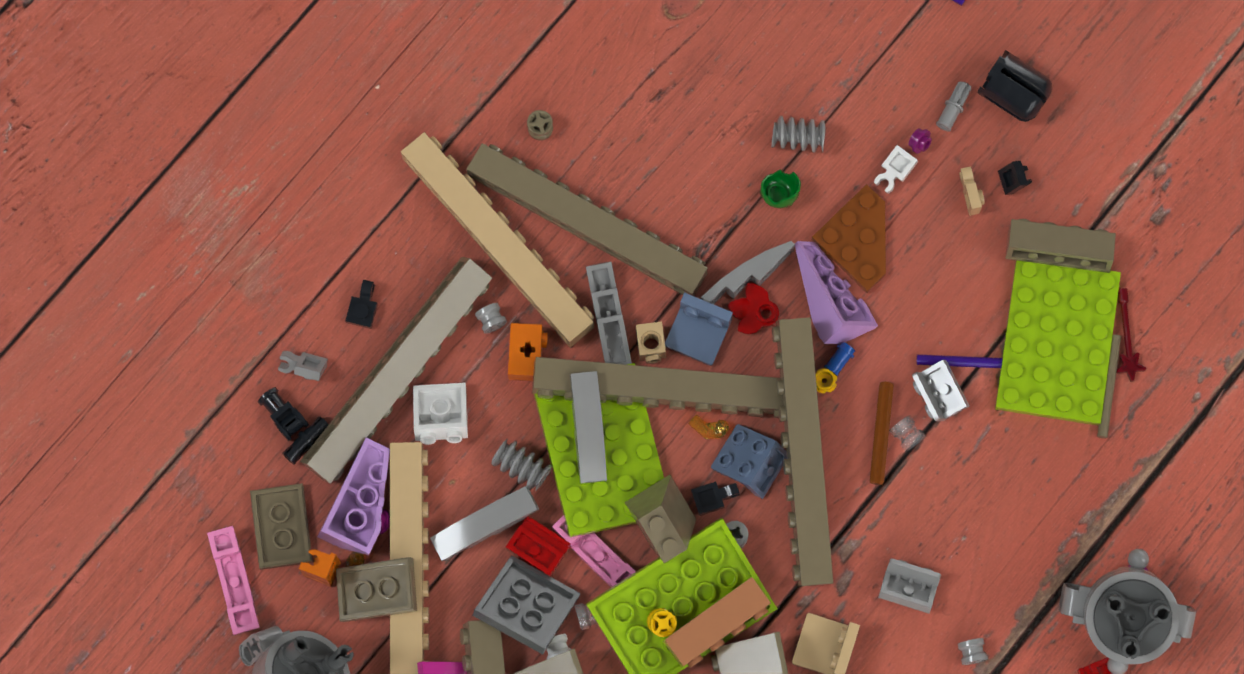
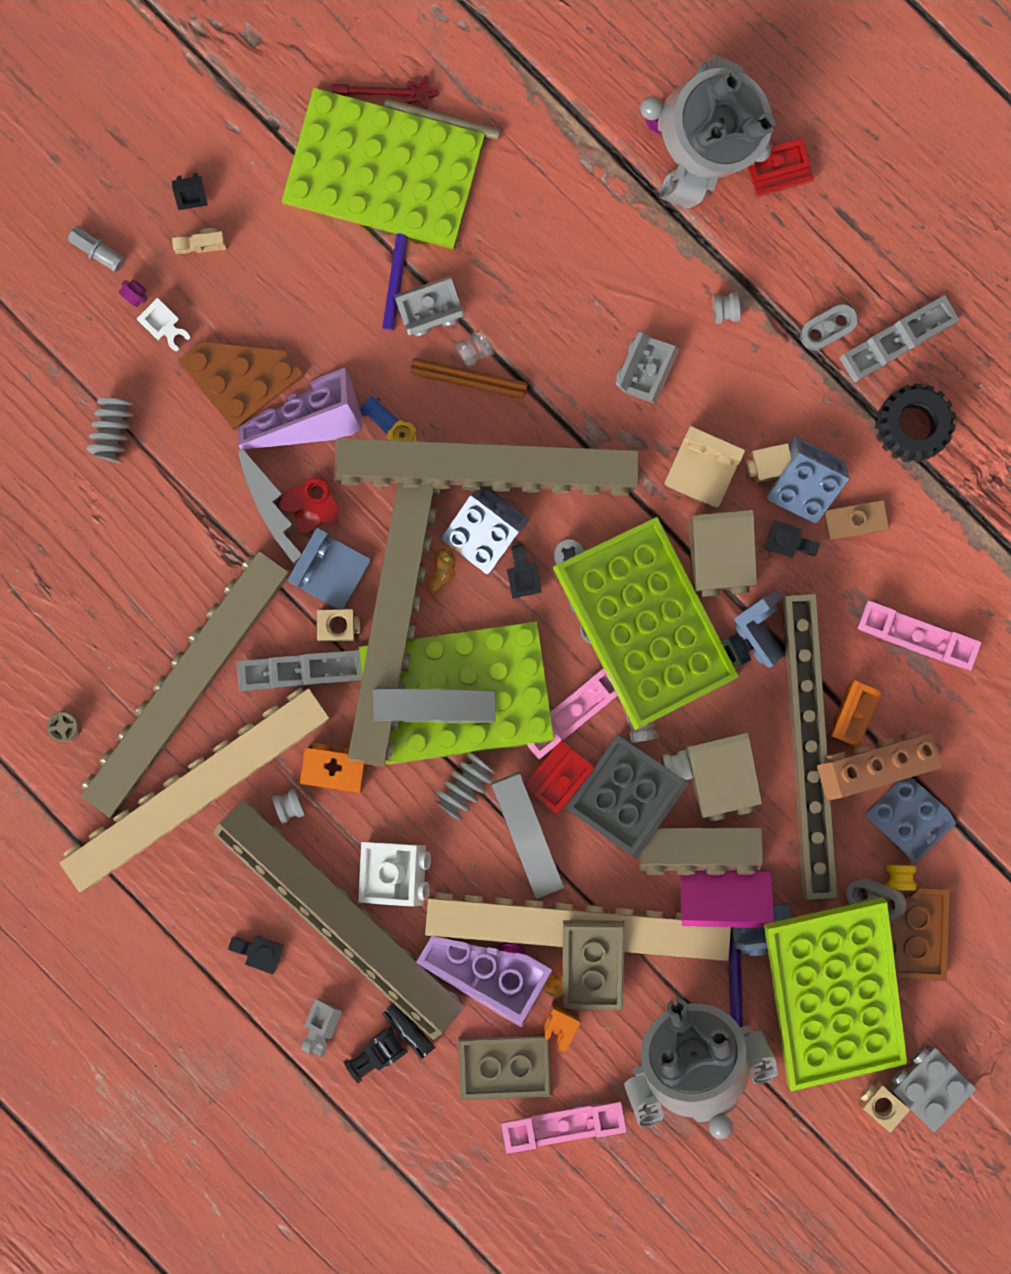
camera: 90 degrees left, 10 degrees up
(663, 518) = (548, 631): dark tan slope -> none
(665, 625) = (671, 642): yellow wheel -> none
(717, 622) = (671, 583): nougat brick -> none
(780, 189) = (173, 458): green hair -> none
(1016, 87) = (84, 173): black cylinder -> none
(1060, 245) = (276, 149): dark tan brick -> none

